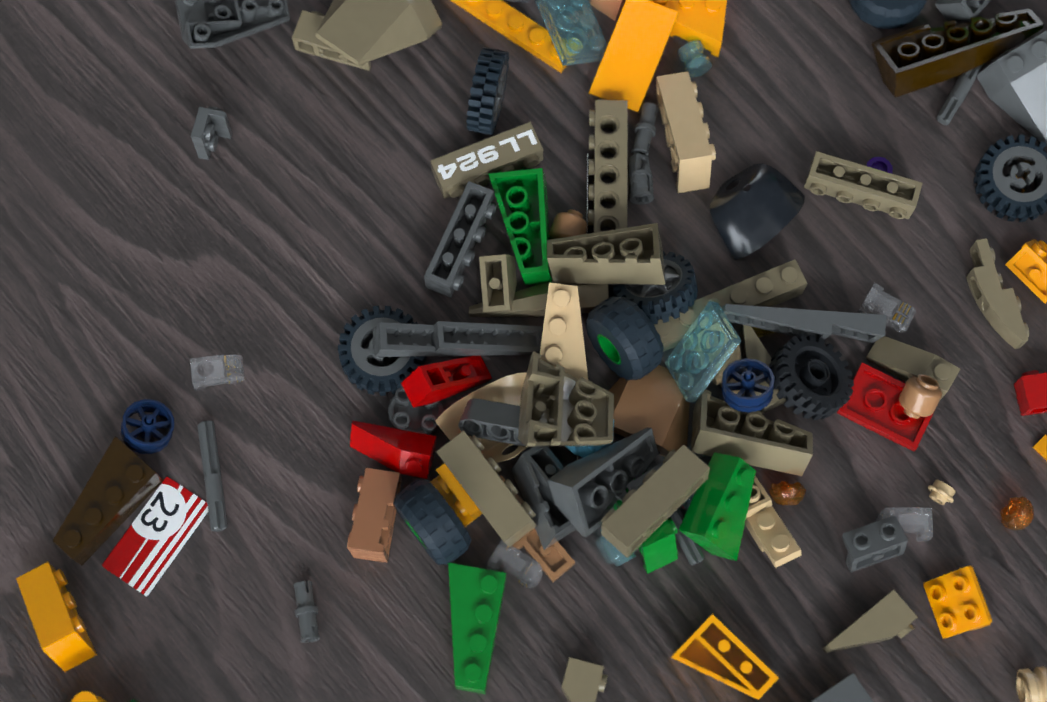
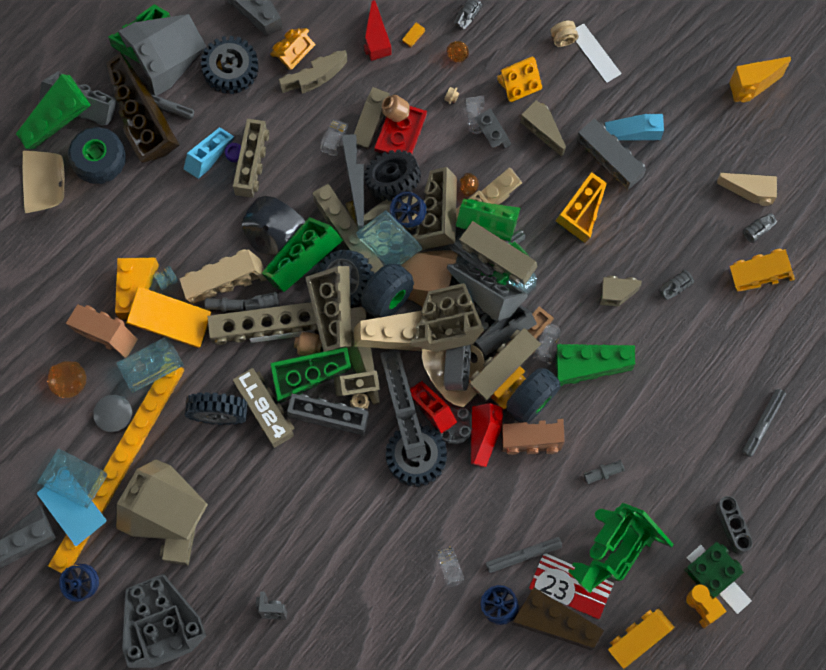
camera: 100 degrees left, 0 degrees up
(188, 581) = (624, 523): none -> green container
(468, 284) = (359, 397): none -> tan plate
(703, 234) = (301, 253): none -> green wedge
(879, 132) = (207, 152): none -> medium azure slope

